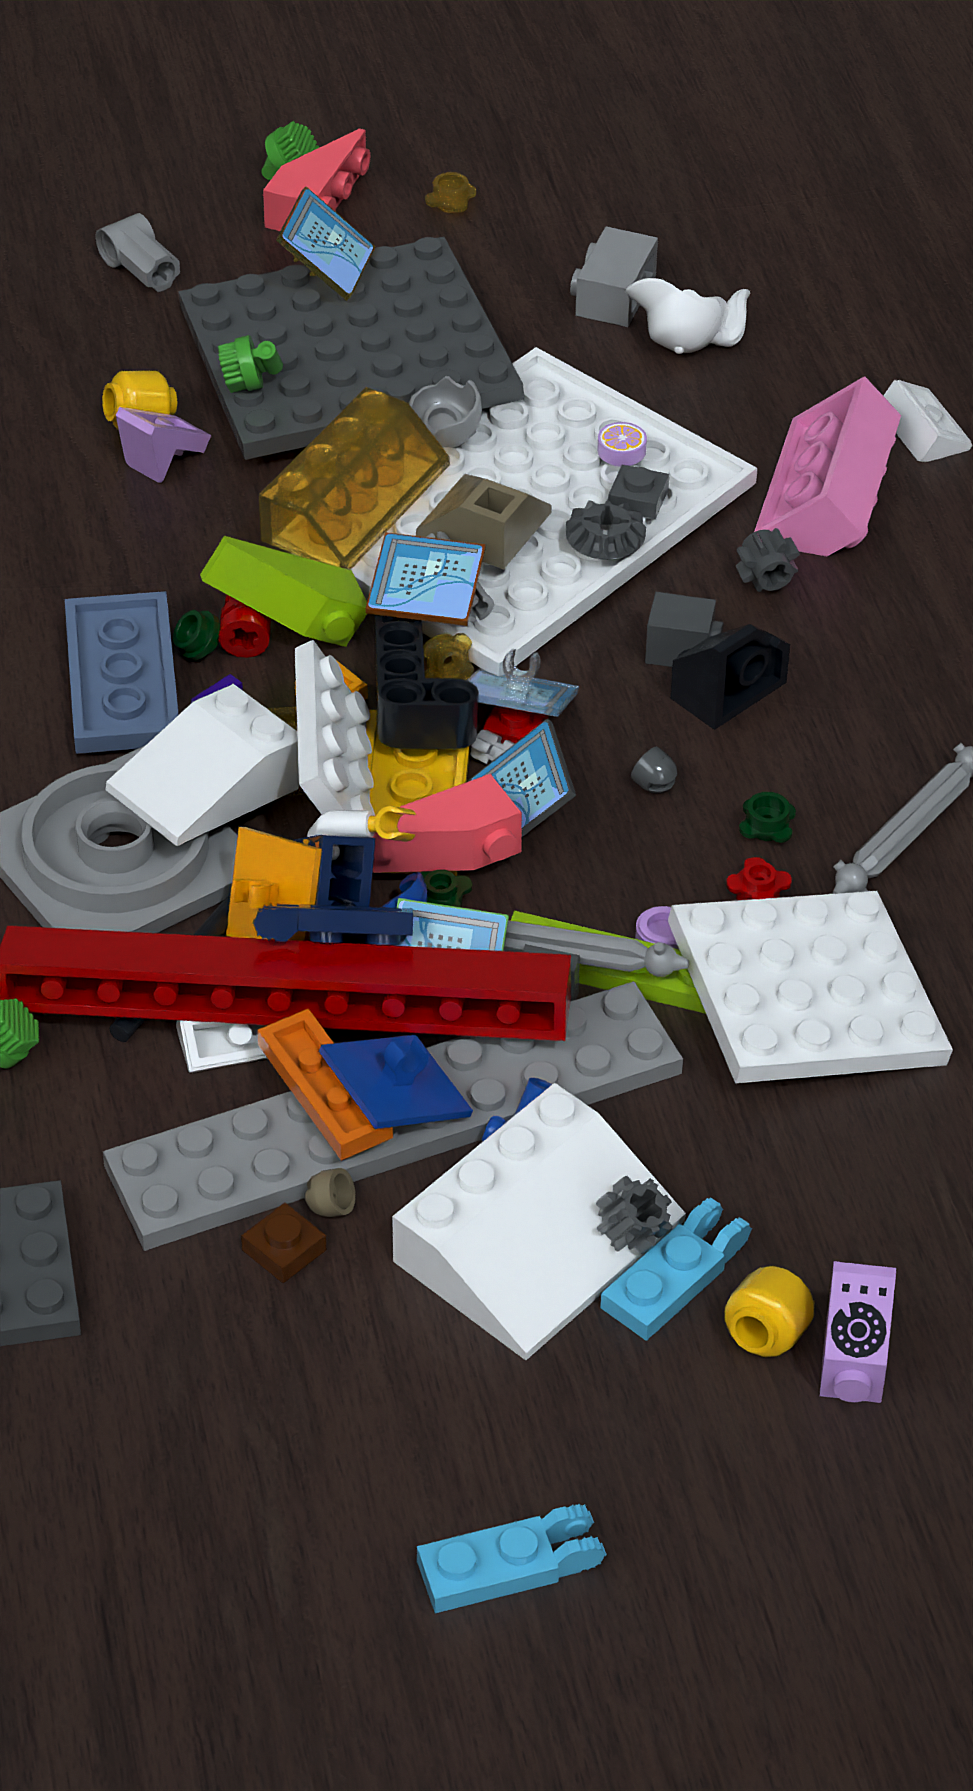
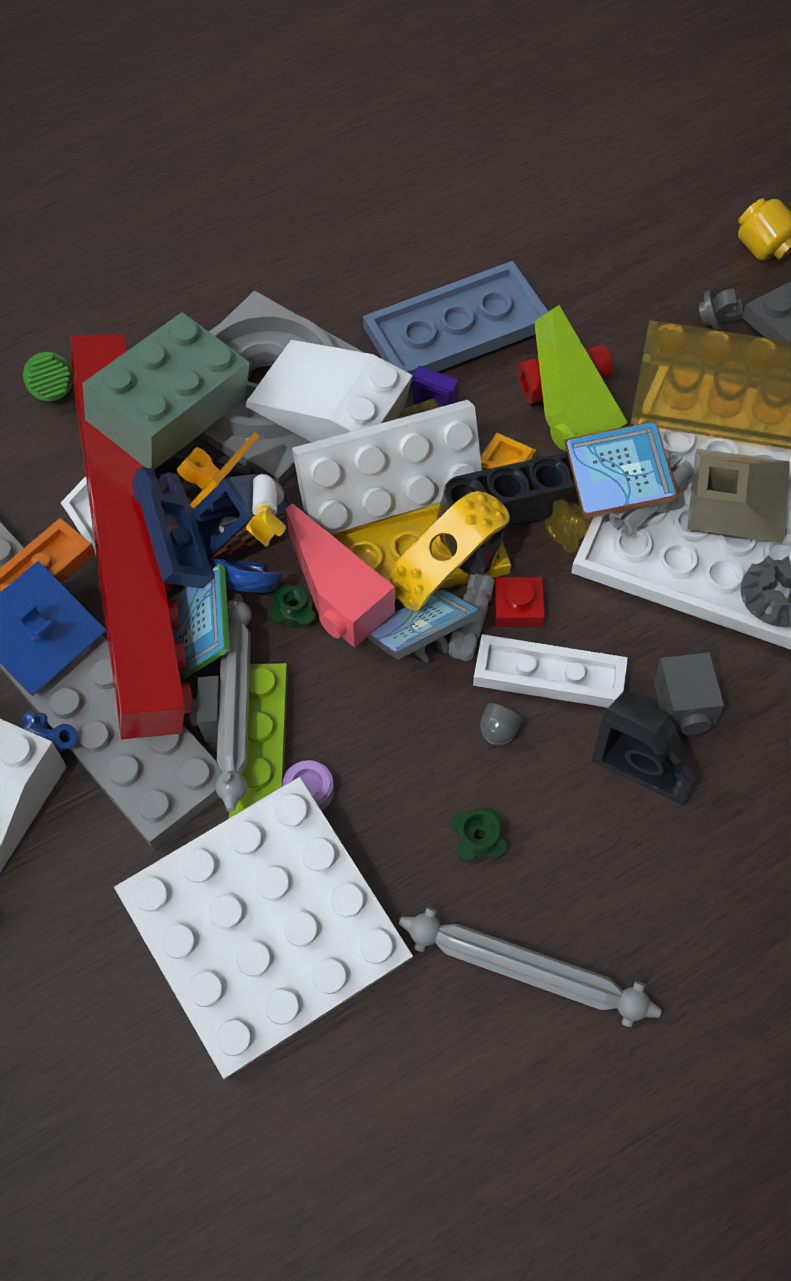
camera: 75 degrees right, 15 degrees up
(148, 881) = (165, 391): none -> sand green brick
(154, 438) = (730, 248): lavender slope -> none
(197, 634) = (516, 351): dark green plate -> none
(224, 474) = (720, 308): none -> dark grey plate
(451, 691) = (471, 523): none -> yellow piece
(520, 690) = (544, 588): clear piece -> none
(614, 719) = (549, 671): none -> white plate
(758, 880) = (393, 862): red plate -> none

